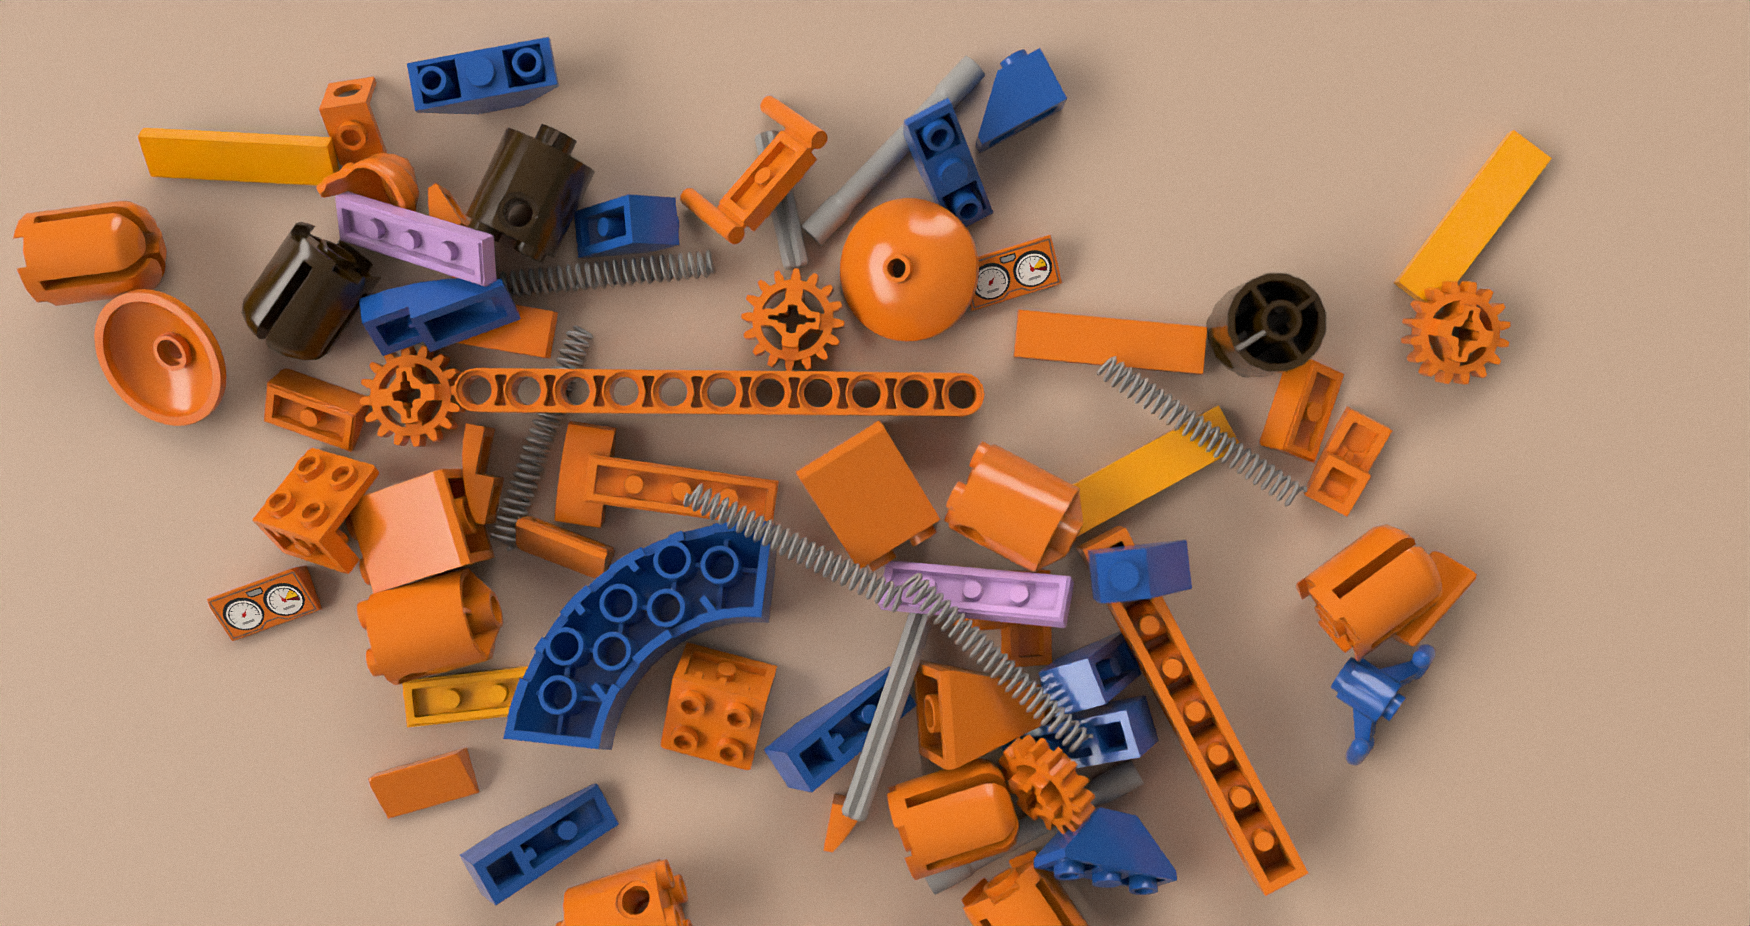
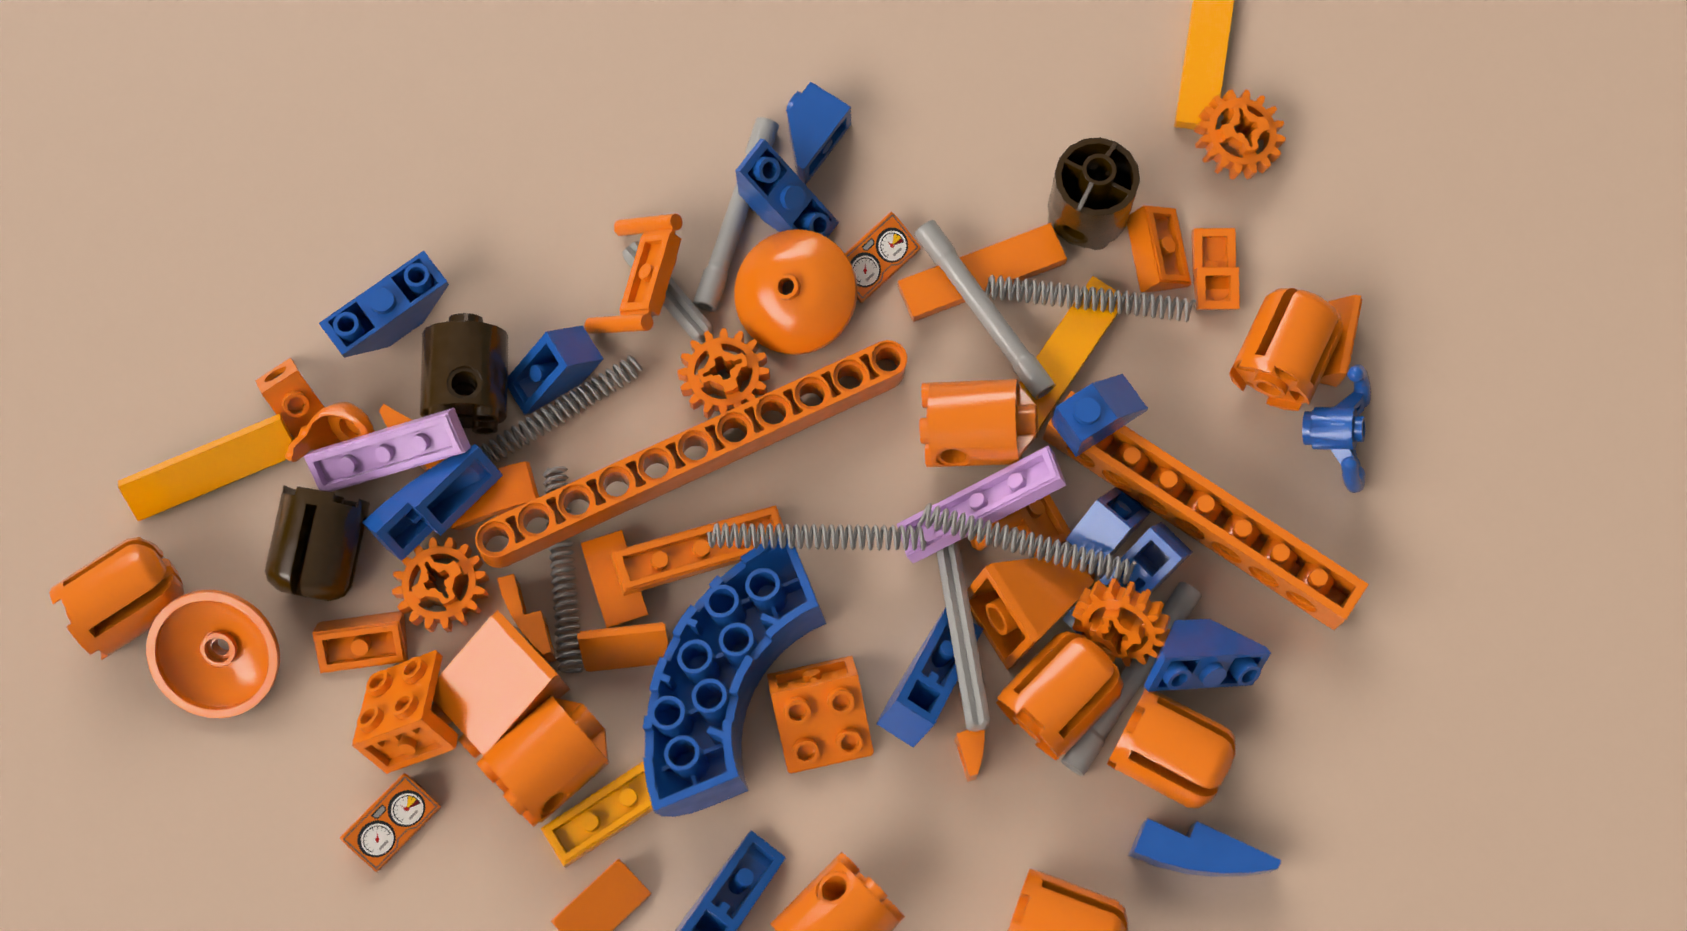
camera: 25 degrees left, 15 degrees down
(869, 497) = (854, 471): orange slope -> none
(1079, 310) = (1023, 362): none -> light grey piece

